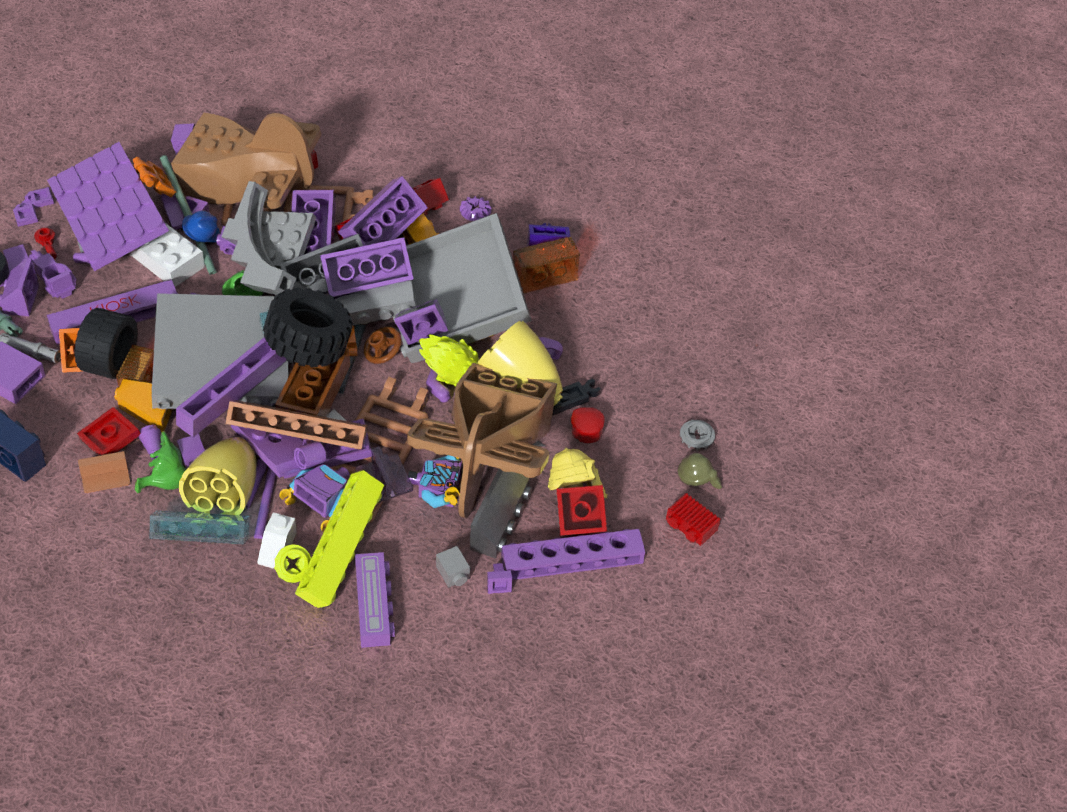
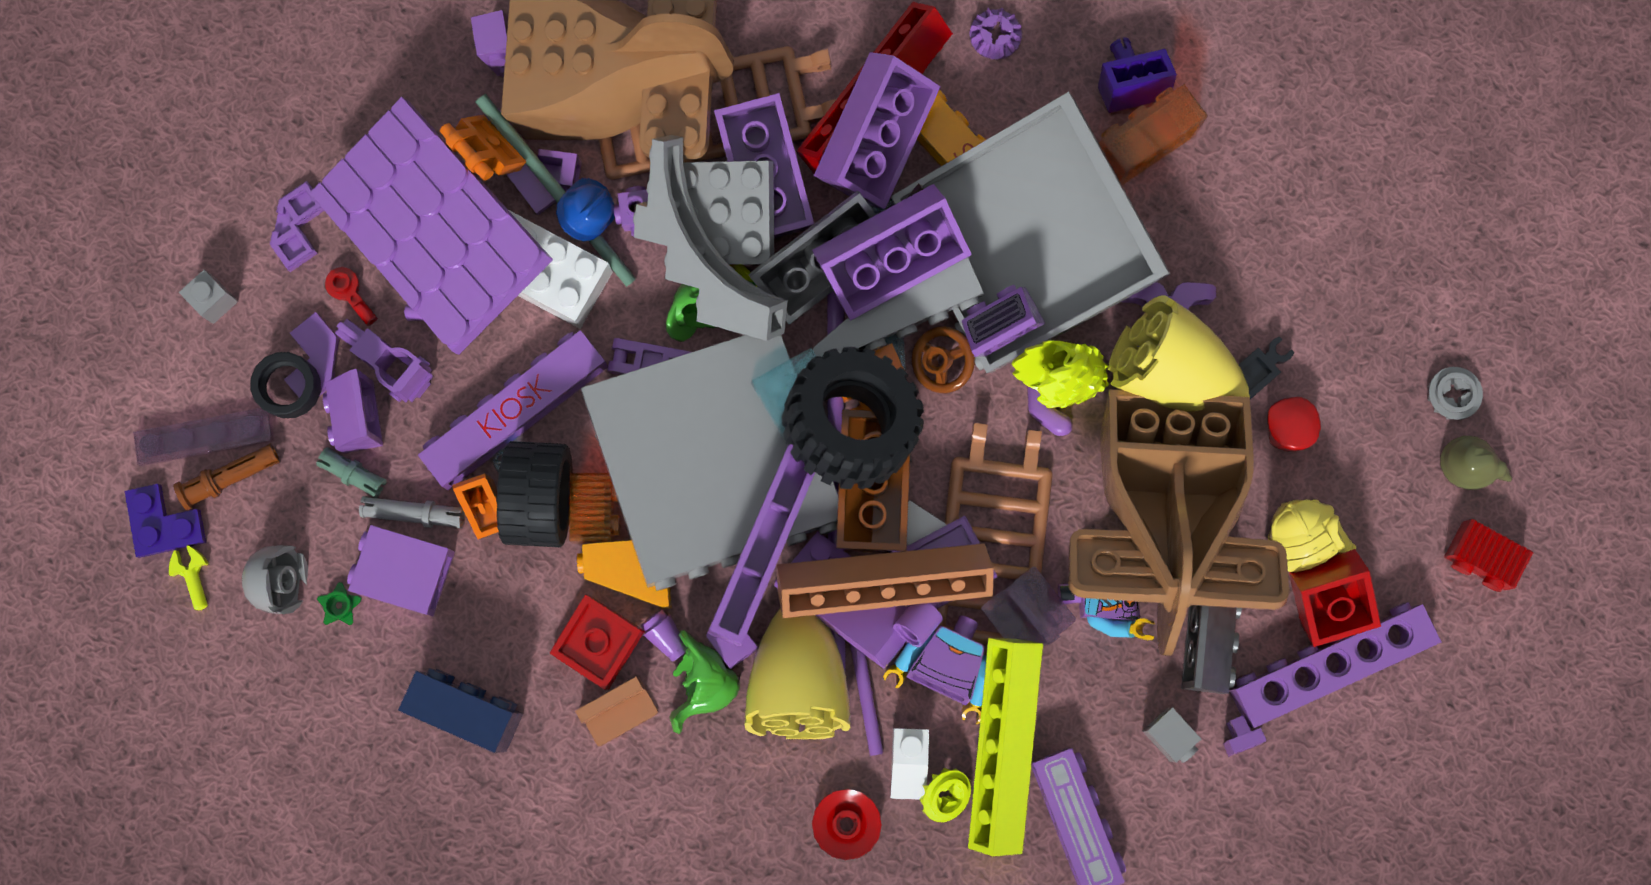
camera: 10 degrees left, 30 degrees up
(199, 527) = (793, 774): clear light blue brick -> none
(221, 557) = (850, 843): none -> red dish

